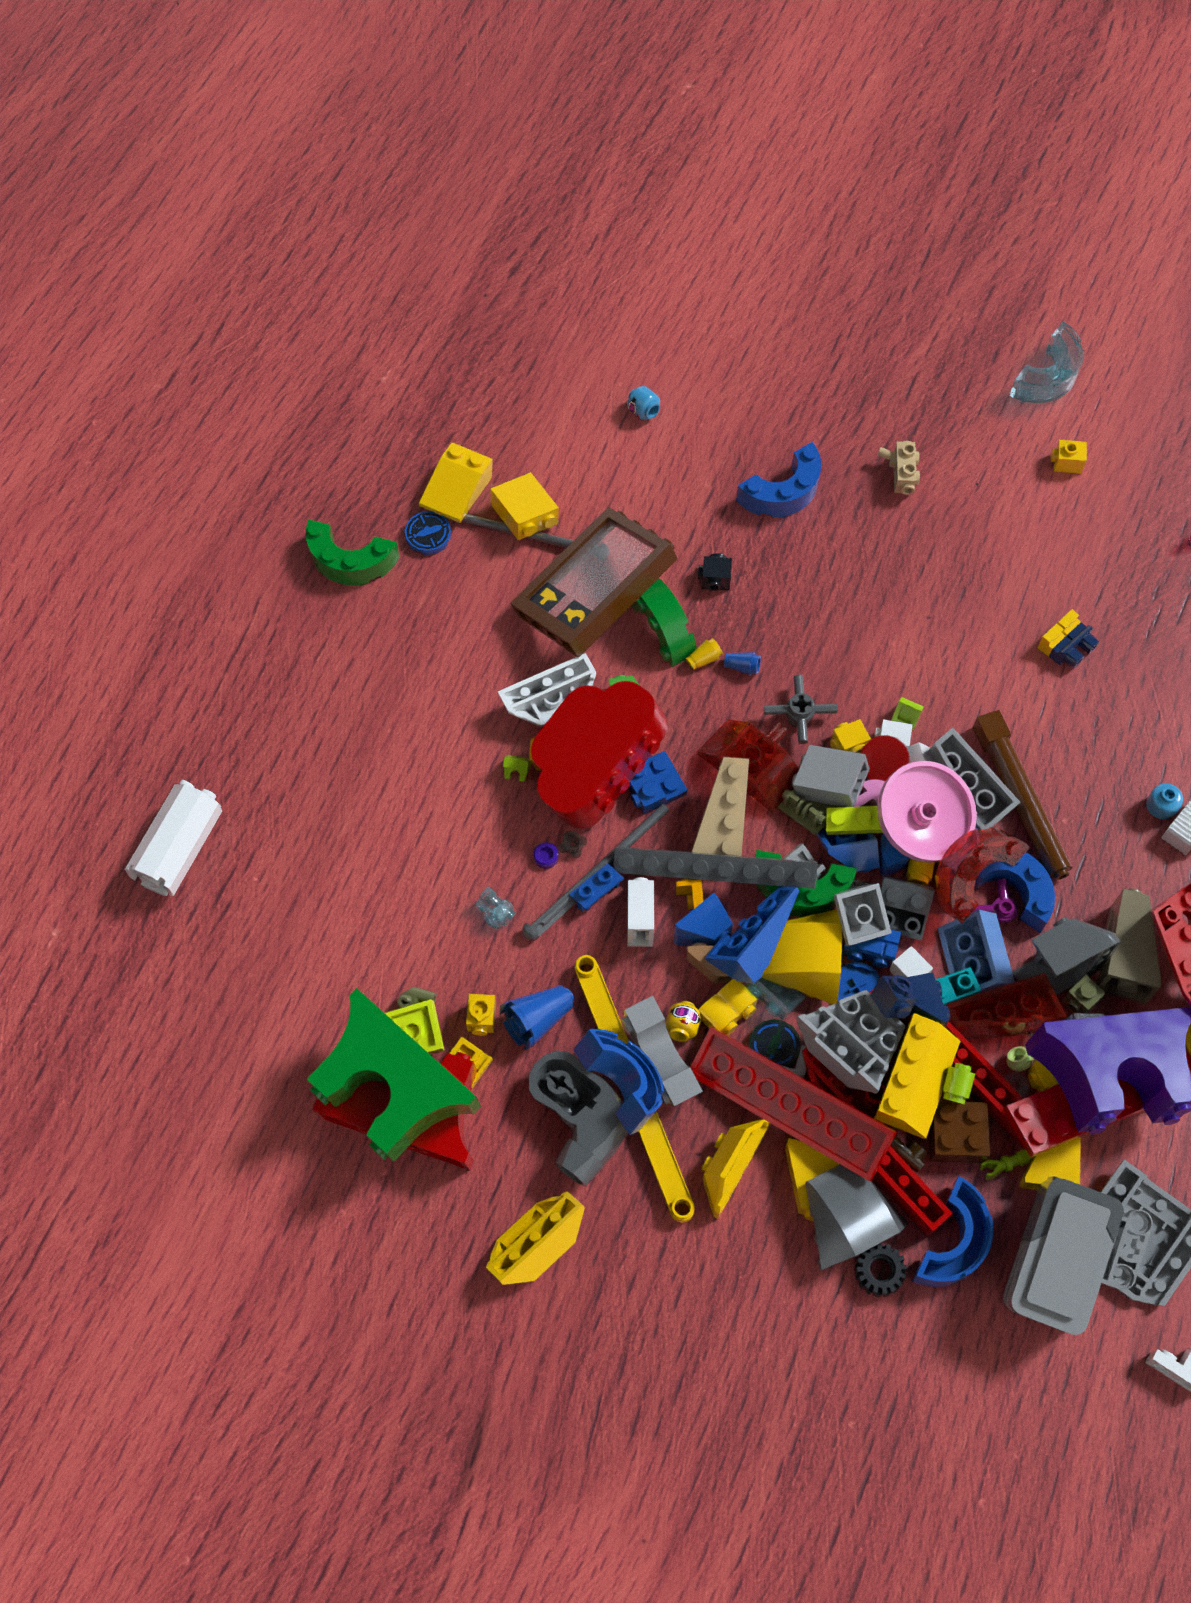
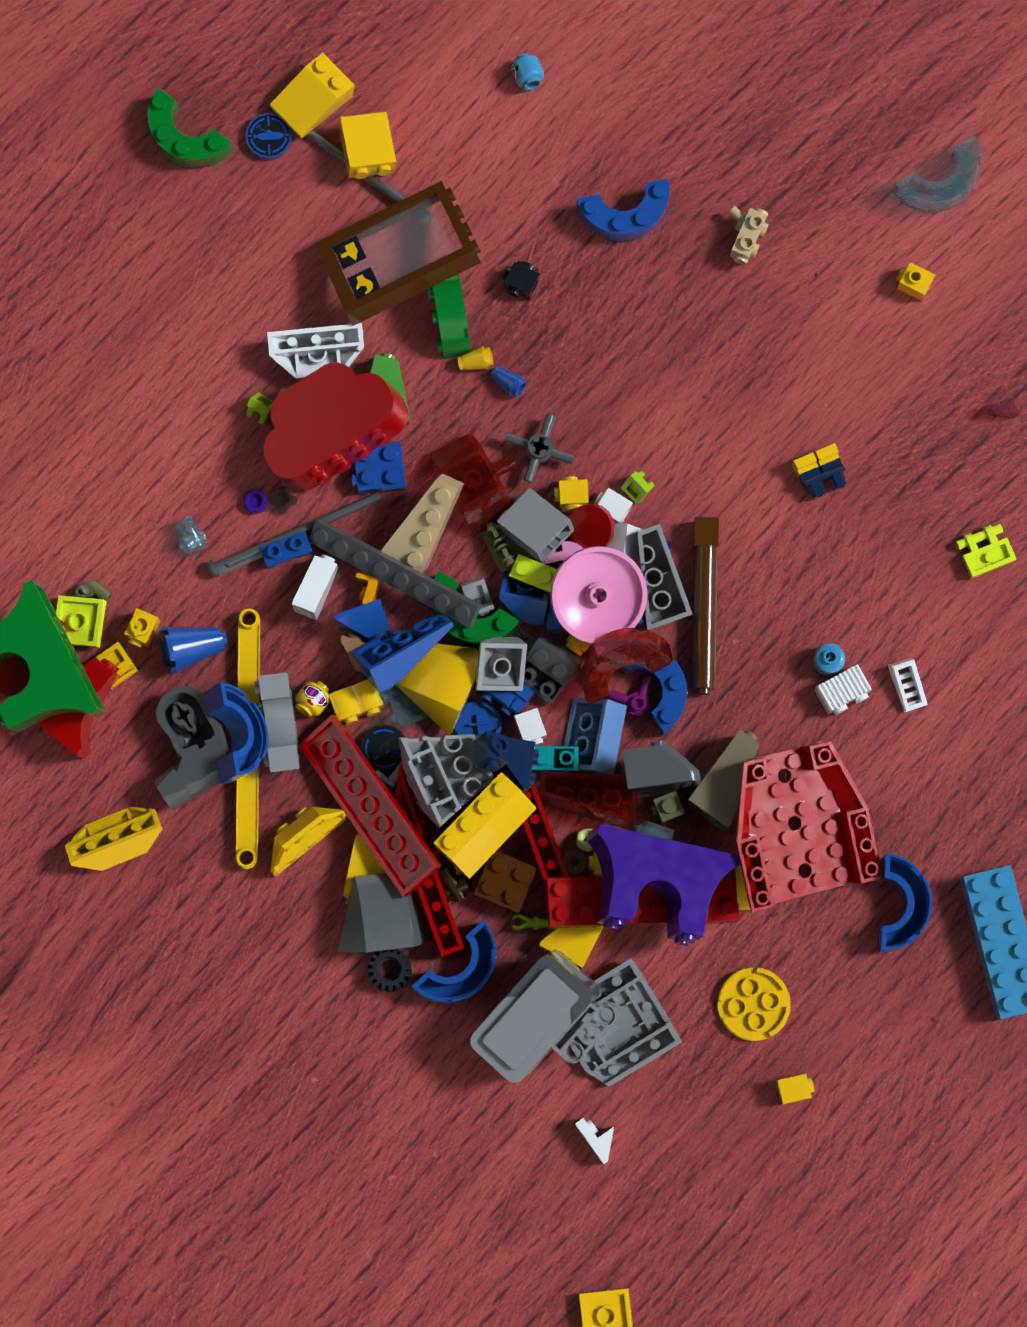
camera: 20 degrees right, 15 degrees up
(958, 1083) = (516, 844): lime brick -> none

